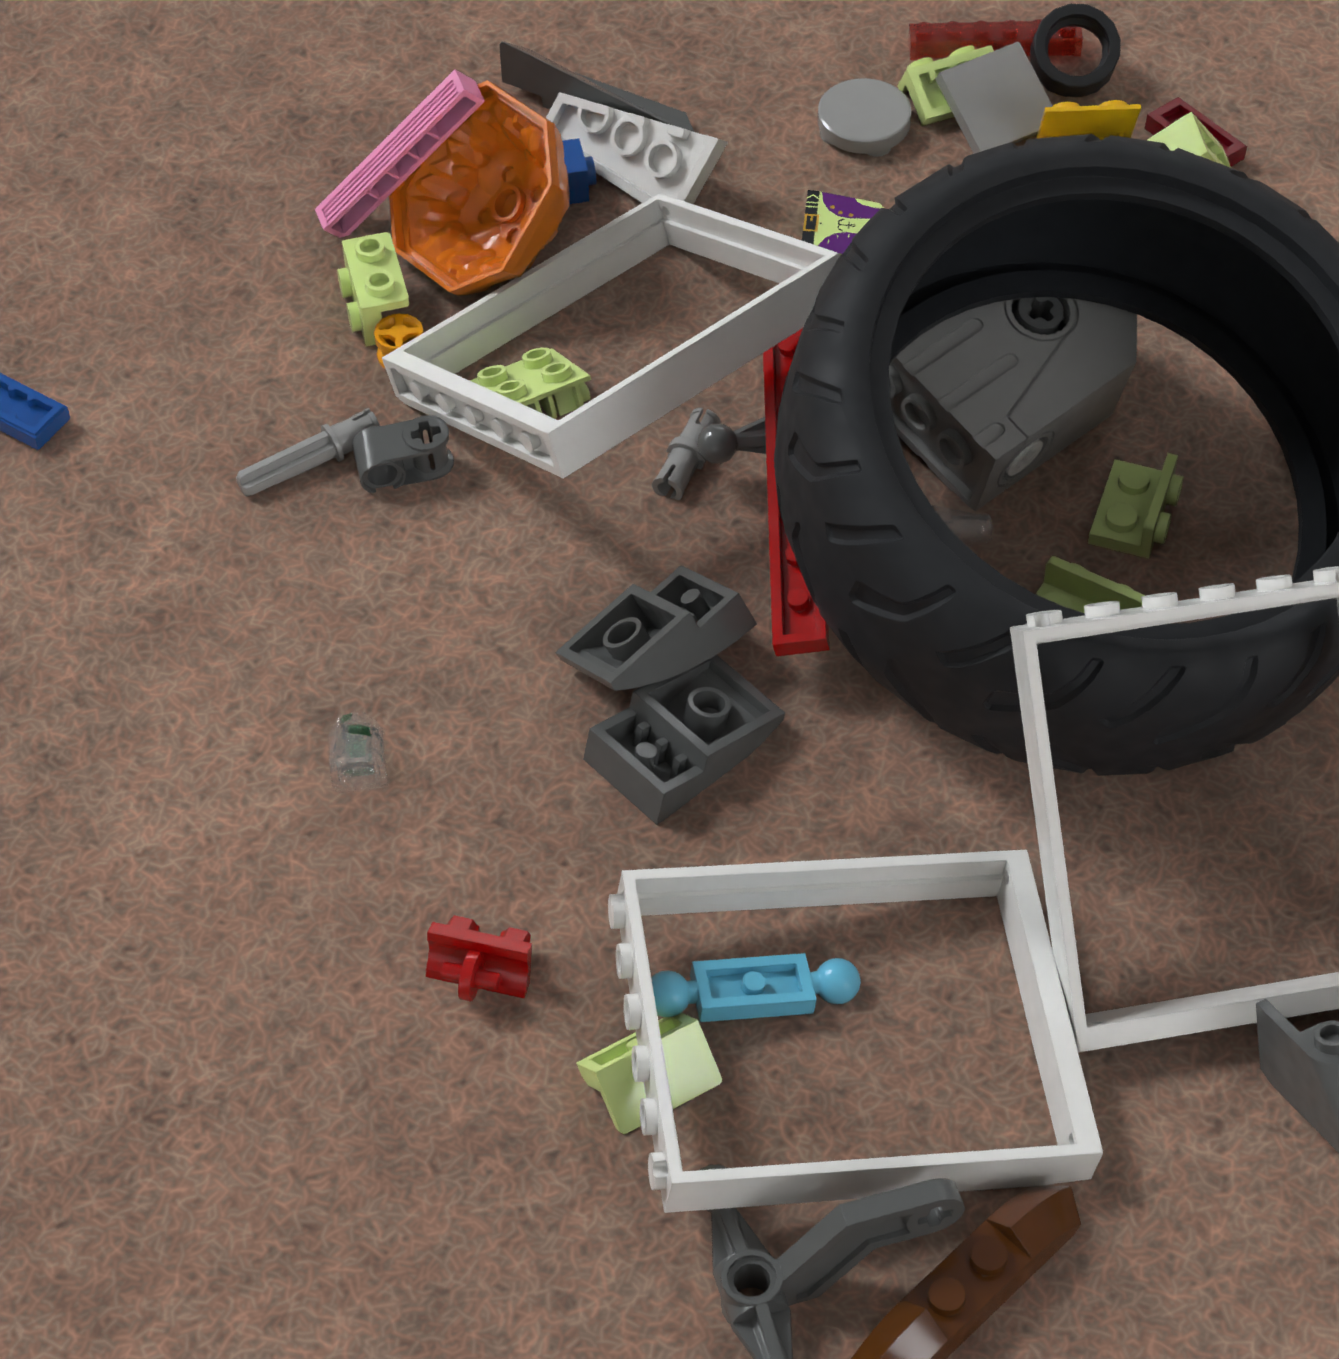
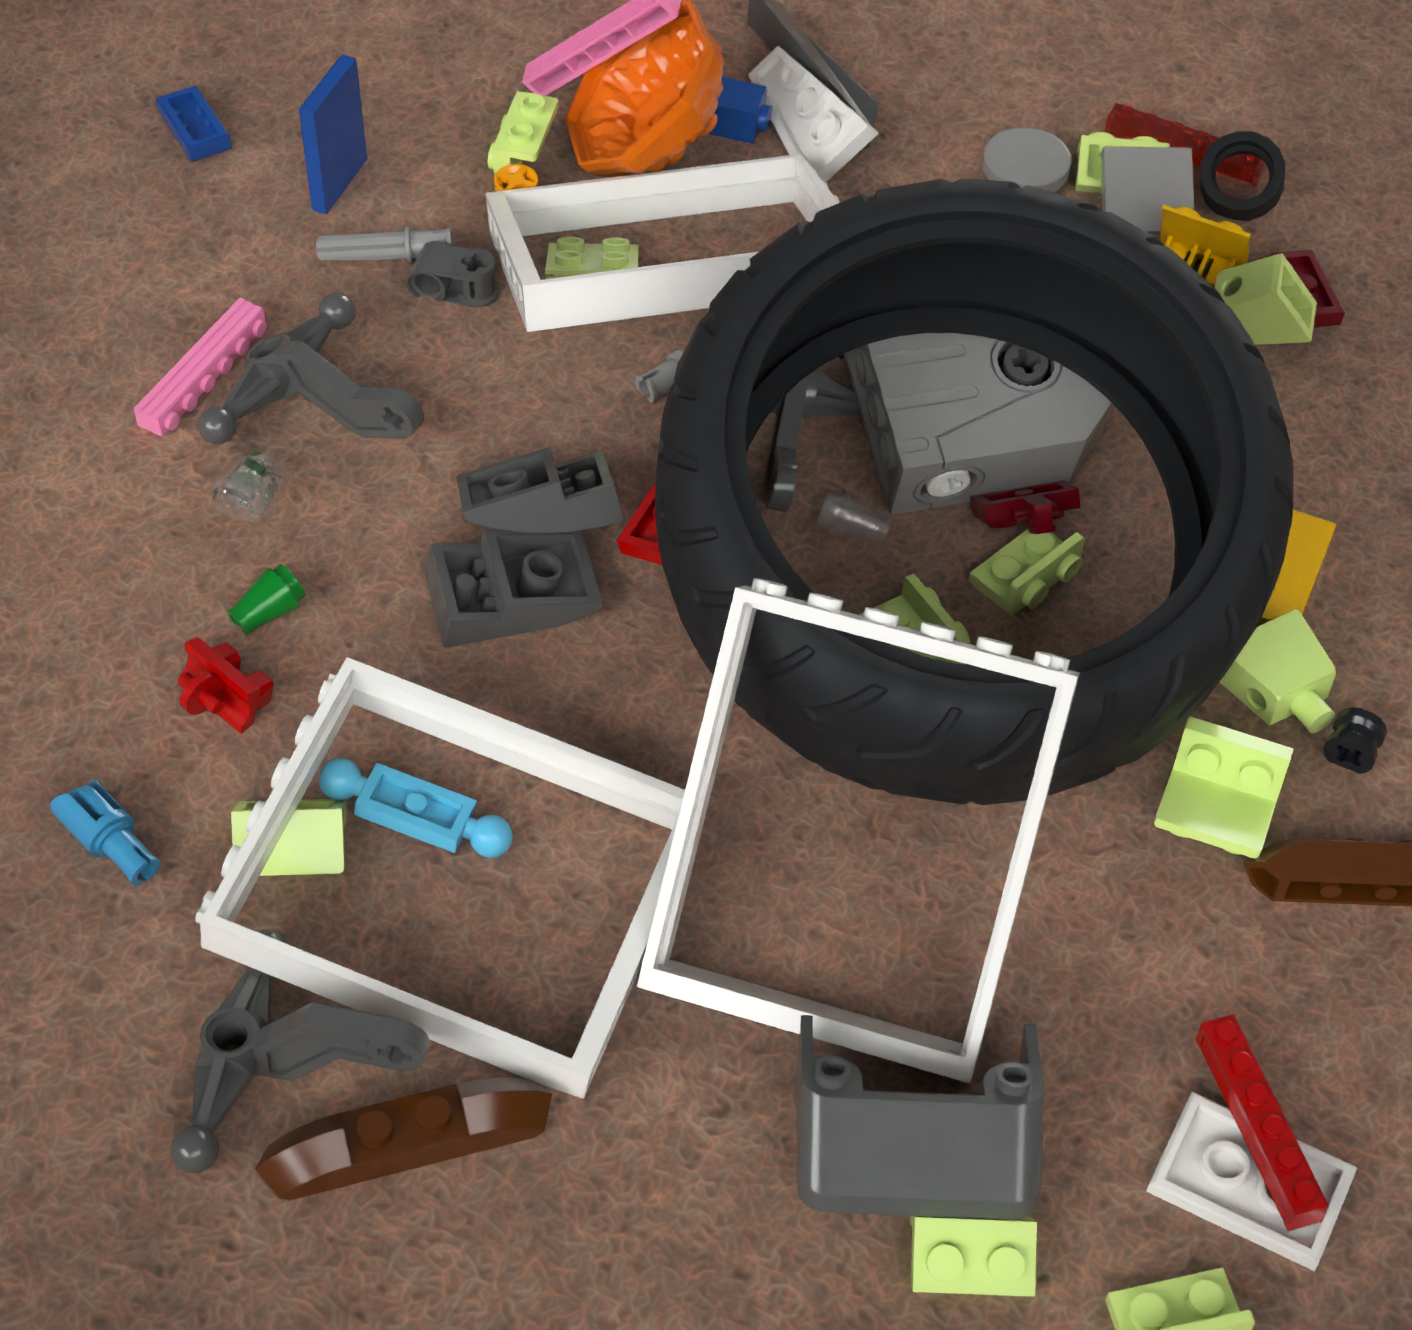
camera: 25 degrees right, 0 degrees up
(198, 359) = (333, 133): none -> blue tile
(214, 656) = (200, 367): none -> bright pink piece
(314, 613) = (292, 364): none -> dark grey piece
(459, 855) = (268, 598): none -> green cone
(472, 1150) = (105, 830): none -> dark azure arm
(1104, 442) = (1033, 504): none -> dark red hinge

